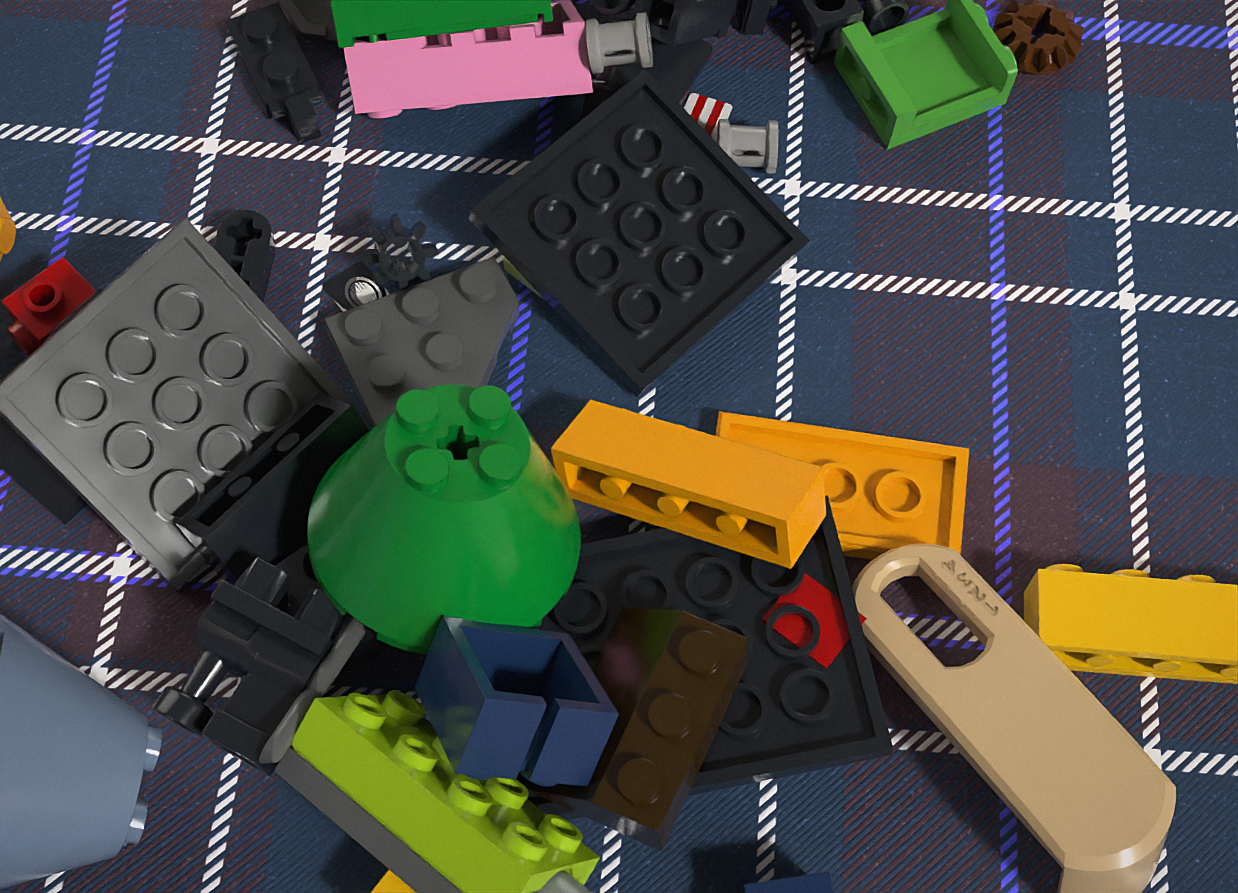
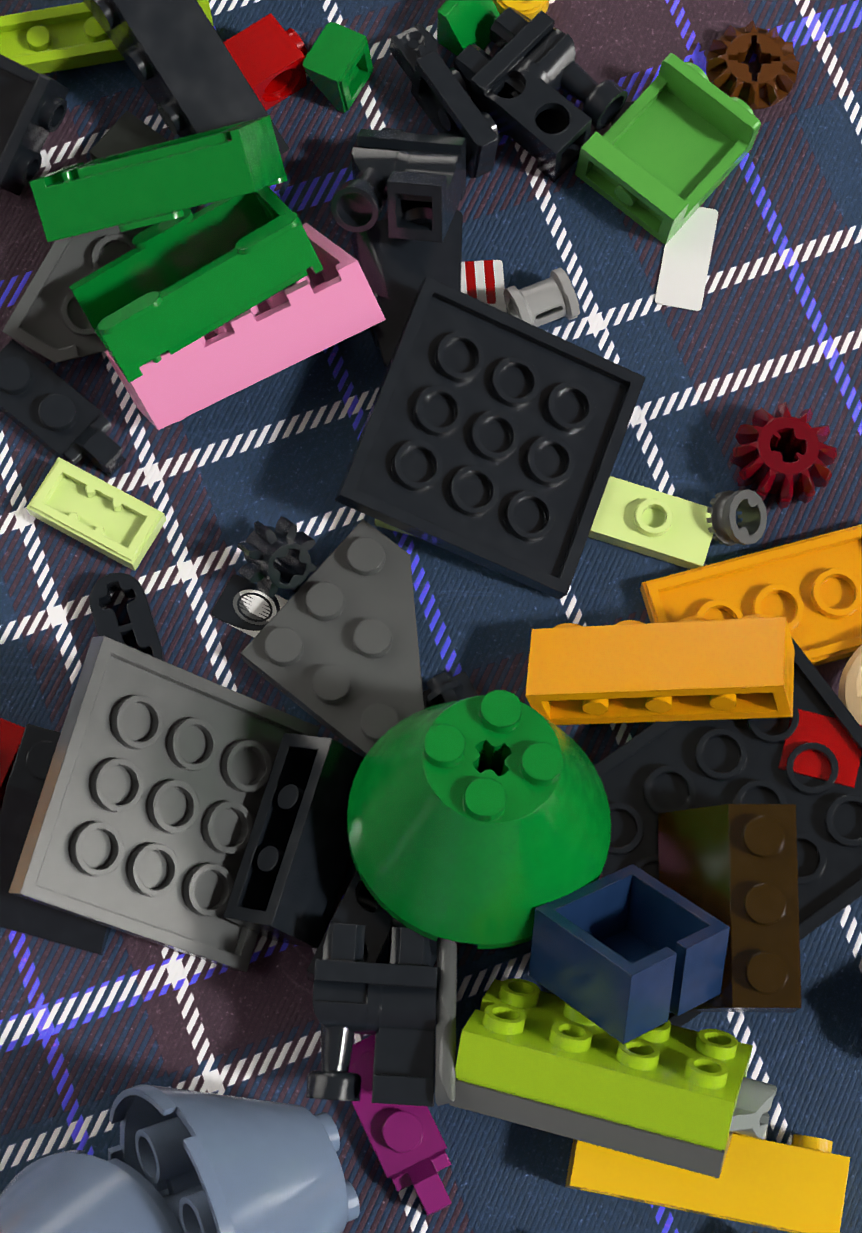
camera: 25 degrees left, 10 degrees up
(234, 812) = (401, 1136): none -> magenta hinge
(268, 161) = (96, 514): none -> yellowish green plate
(619, 43) = (394, 263): light grey bush -> none
(756, 368) = (653, 524): none -> yellowish green plate
(819, 386) = (724, 517): none -> dark grey bush
(900, 170) = (687, 262): none -> white sticker
(927, 362) = (800, 445): none -> dark red gear

